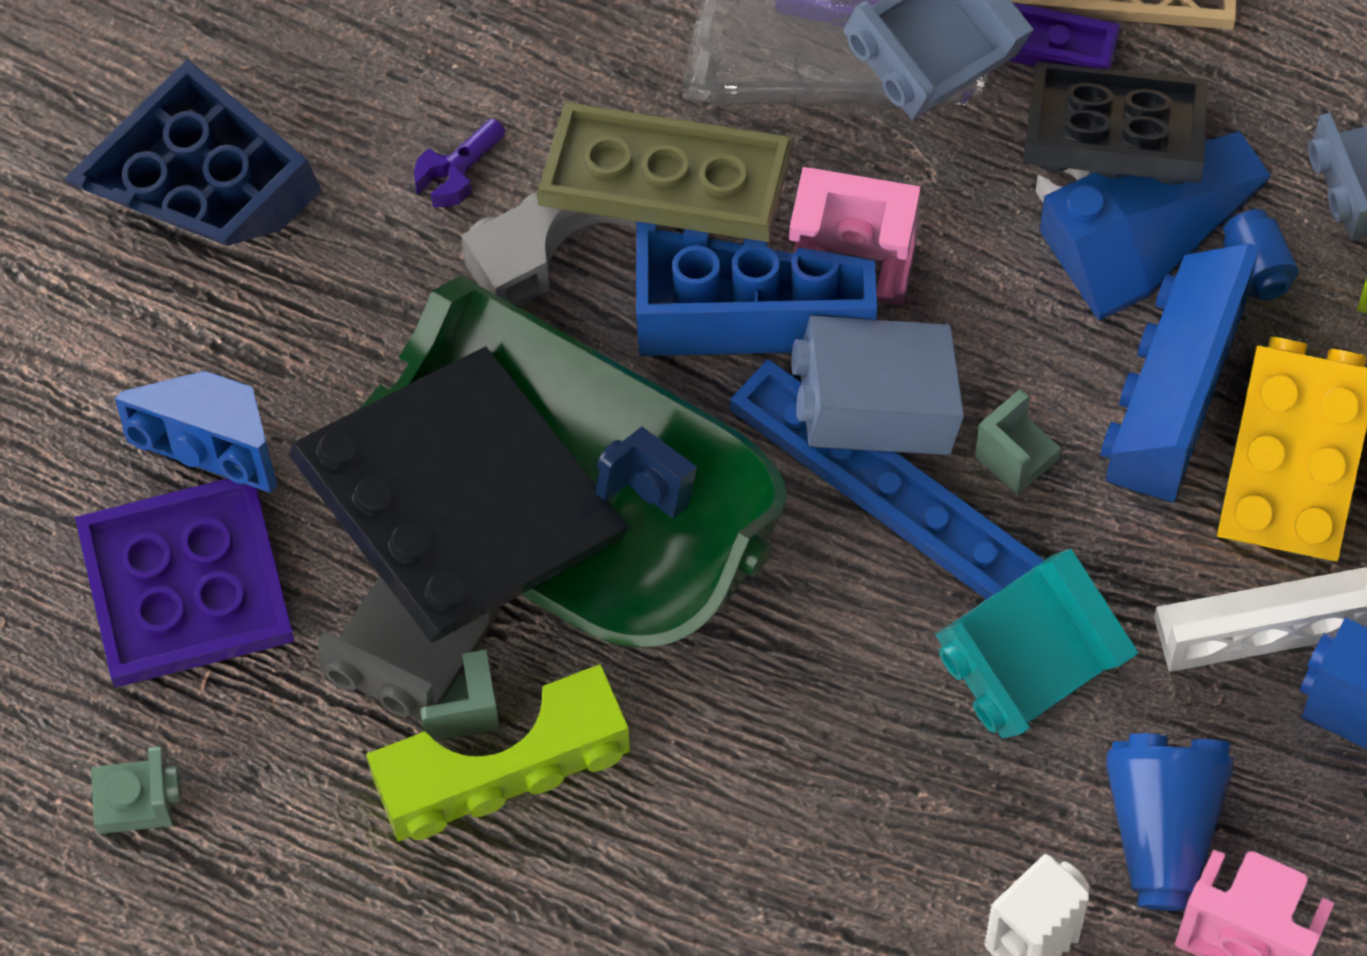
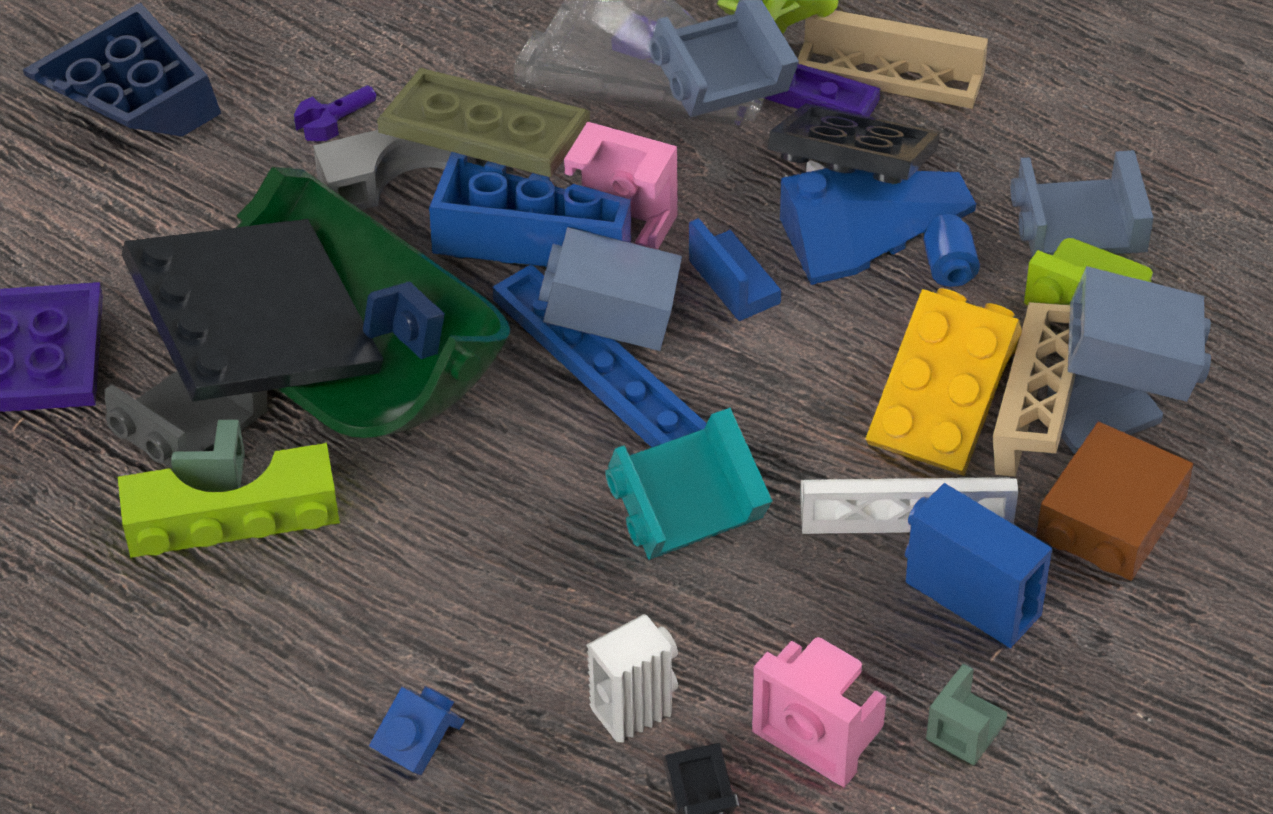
camera: 10 degrees right, 15 degrees down
(202, 424) = (69, 243): blue slope -> none
(1006, 324) = (731, 271): none -> blue panel
(1014, 445) = (712, 350): sand green panel -> none
(1167, 812) = (765, 608): blue cone -> none
(1180, 371) = (863, 318): blue slope -> none

